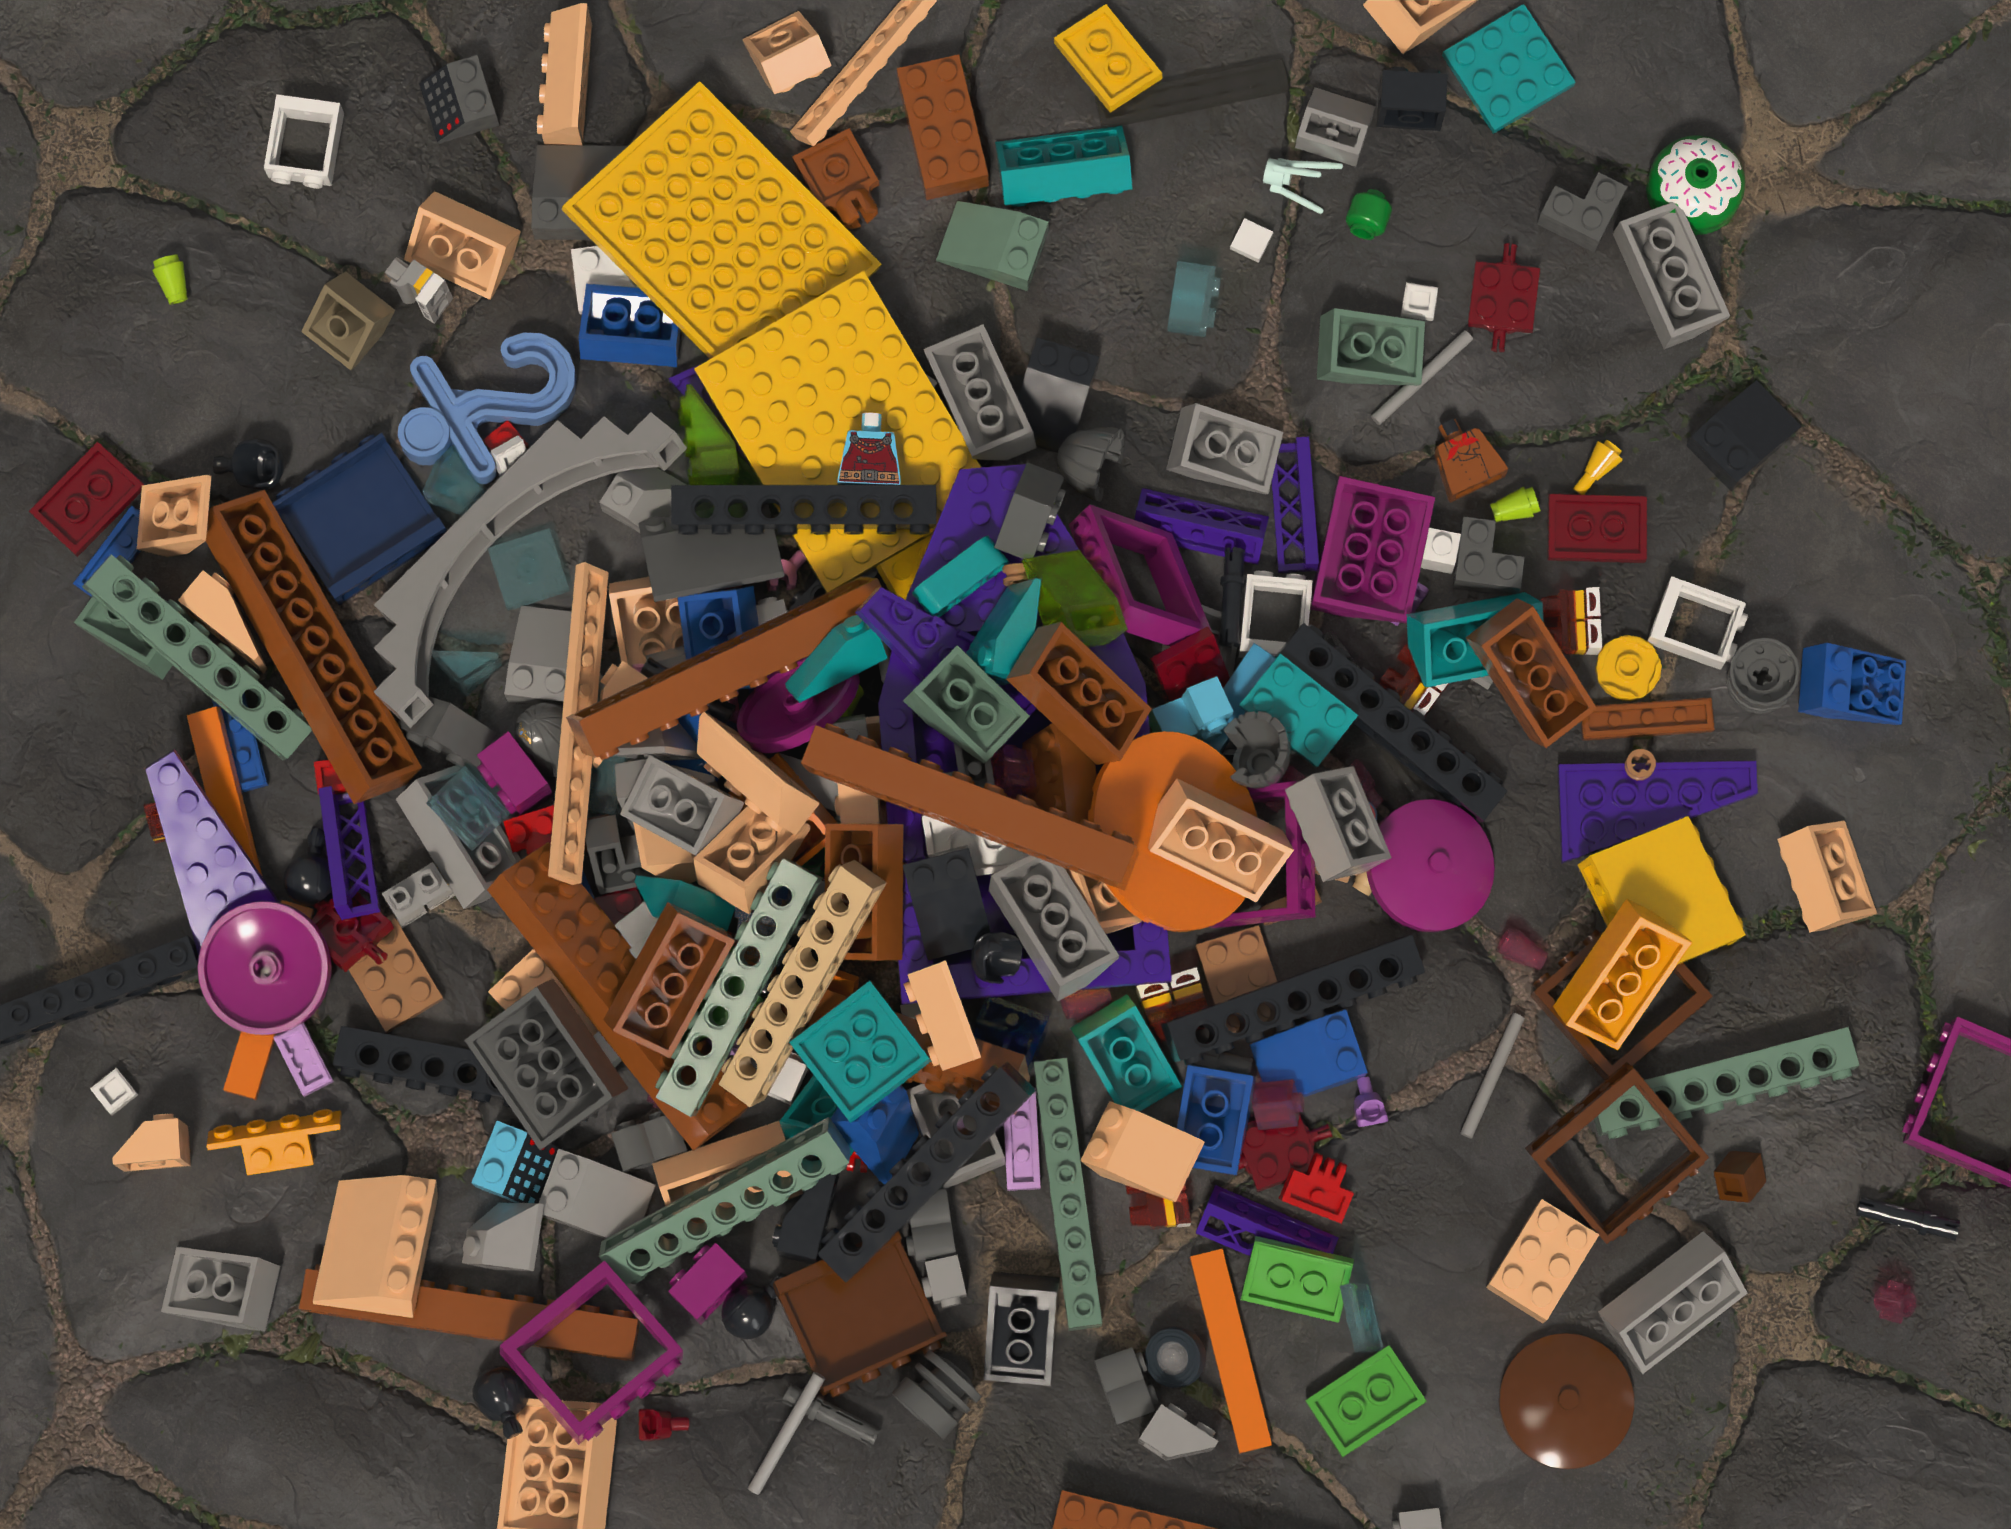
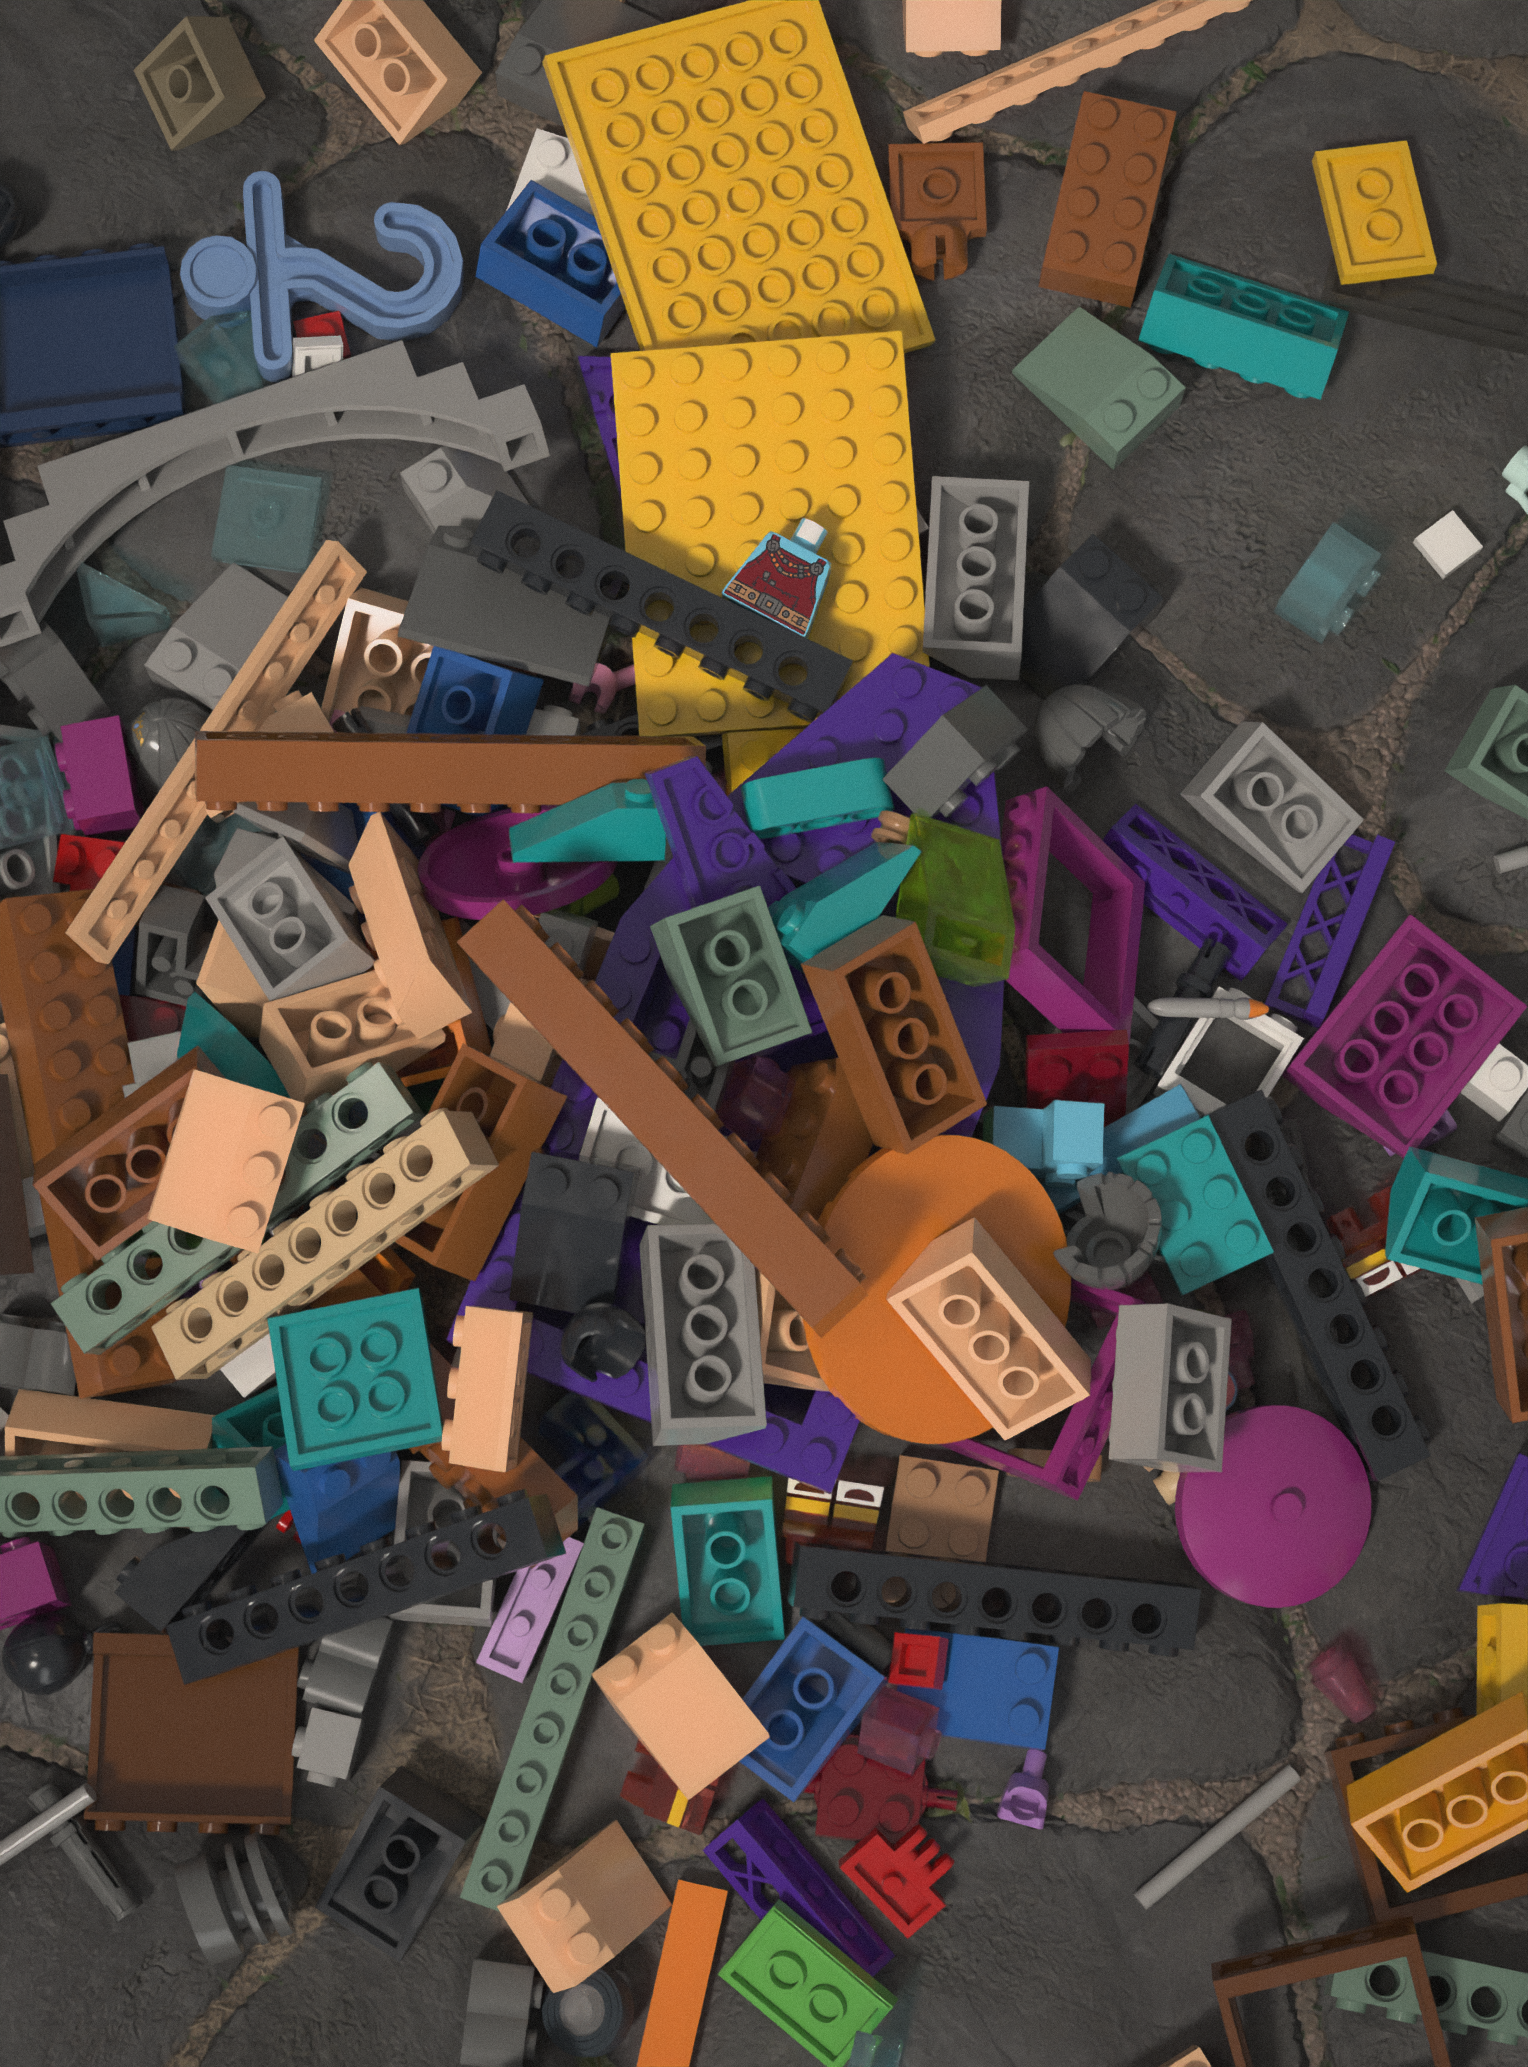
camera: 25 degrees right, 0 degrees up
(422, 285) = (311, 83): light grey hips -> none
(707, 443) = (580, 463): clear neon green slope -> none
(723, 959) = (226, 1161): none -> light nougat slope
(1144, 1298) = (585, 1908): none -> light nougat slope
(1266, 581) = (1208, 1008): none -> light grey piece
(1267, 1058) = (918, 1660): none -> red plate

